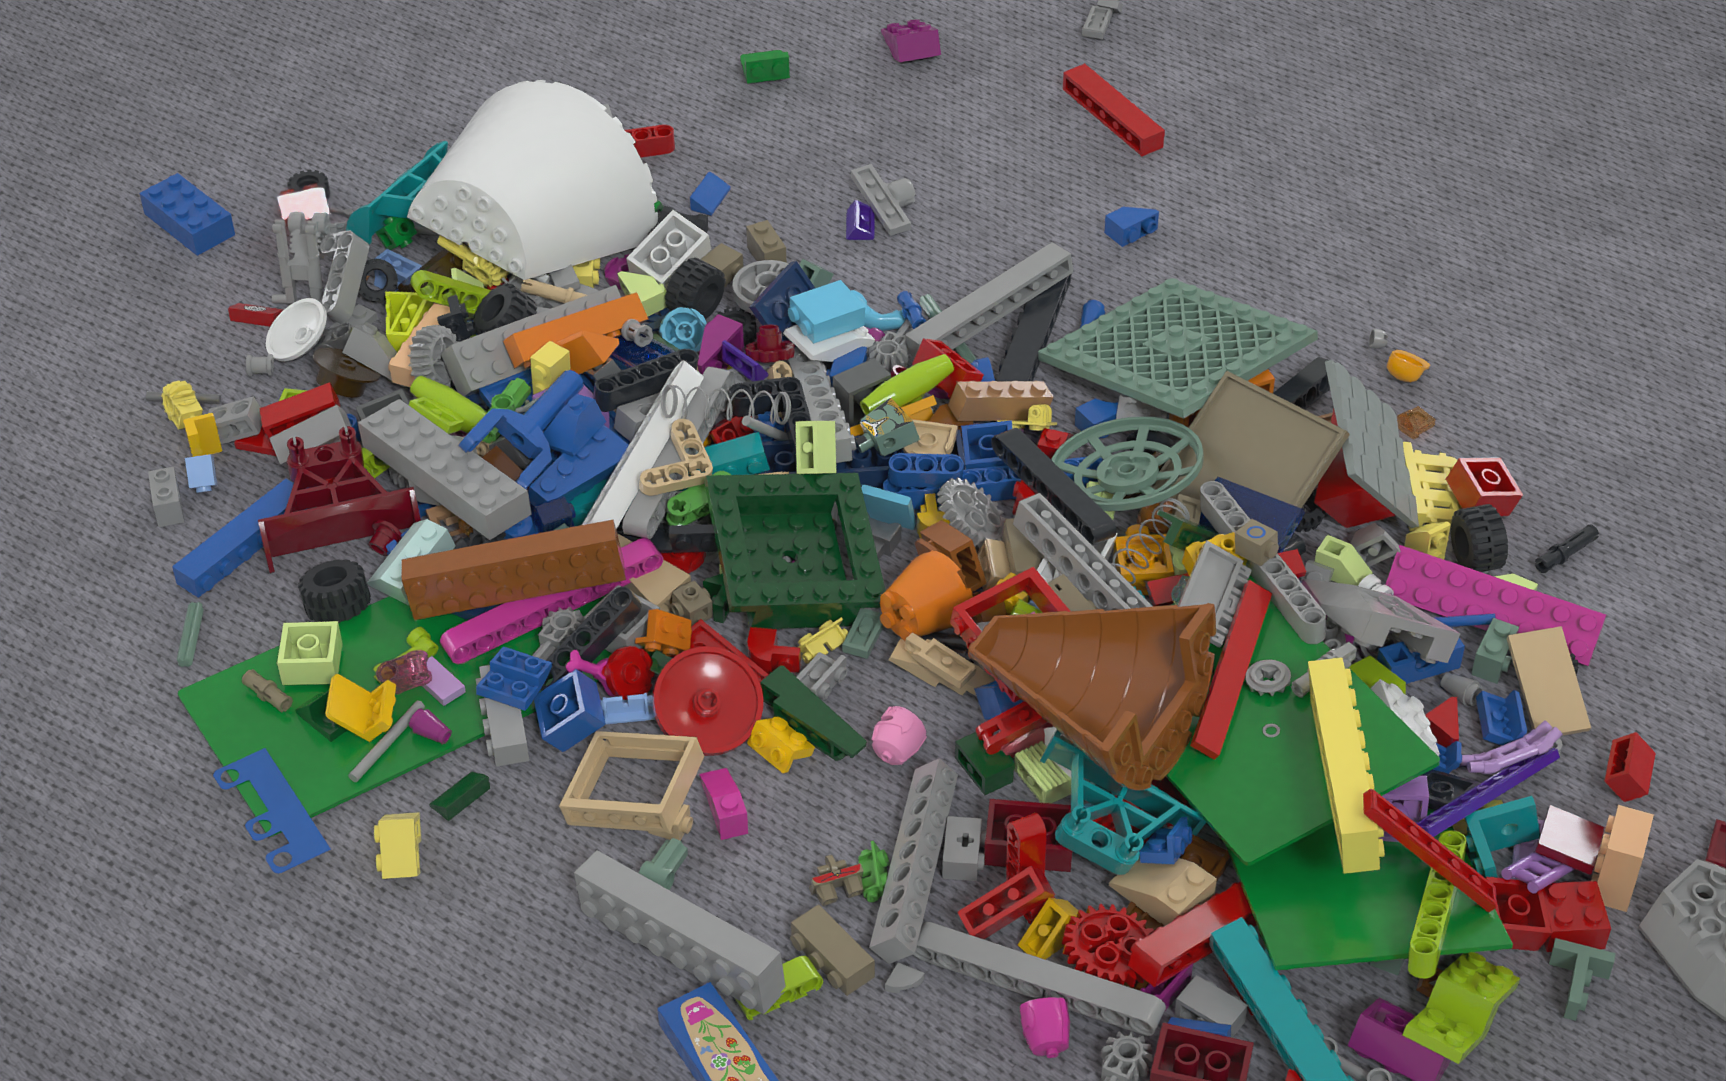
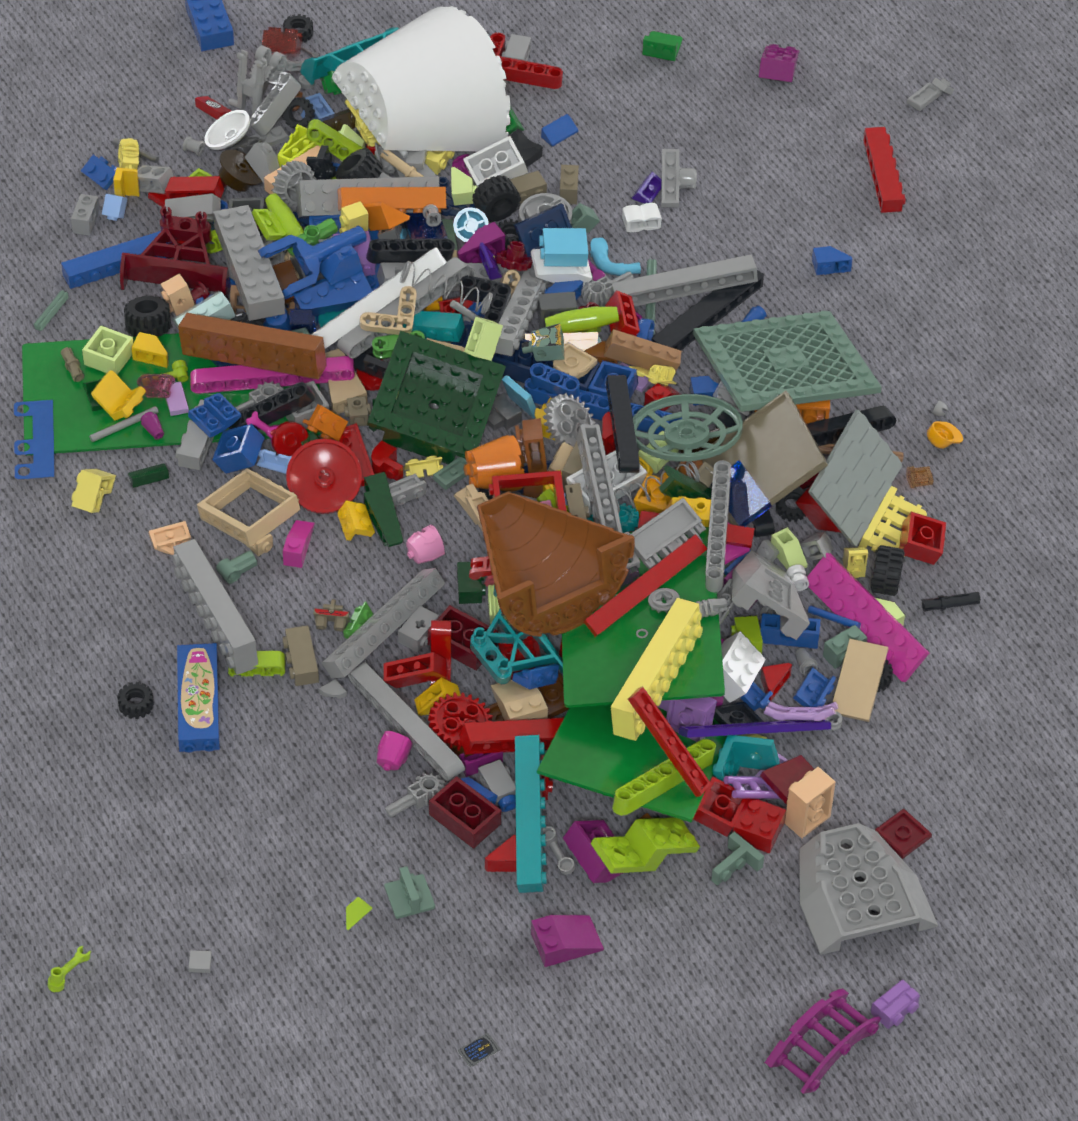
camera: 25 degrees right, 5 degrees up
(154, 439) = (99, 171): none -> blue bracket
(361, 544) = (177, 294): none -> light nougat brick
(366, 632) = (149, 350): none -> yellow slope
(546, 867) = (169, 536): none -> light nougat slope
(878, 254) = (641, 217): none -> white brick
(910, 309) = (630, 266): blue pin -> none
(1244, 1028) = (507, 803): none -> blue tile
(1256, 542) = (714, 511): dark tan brick -> none
(1630, 767) = (870, 753): red brick -> none

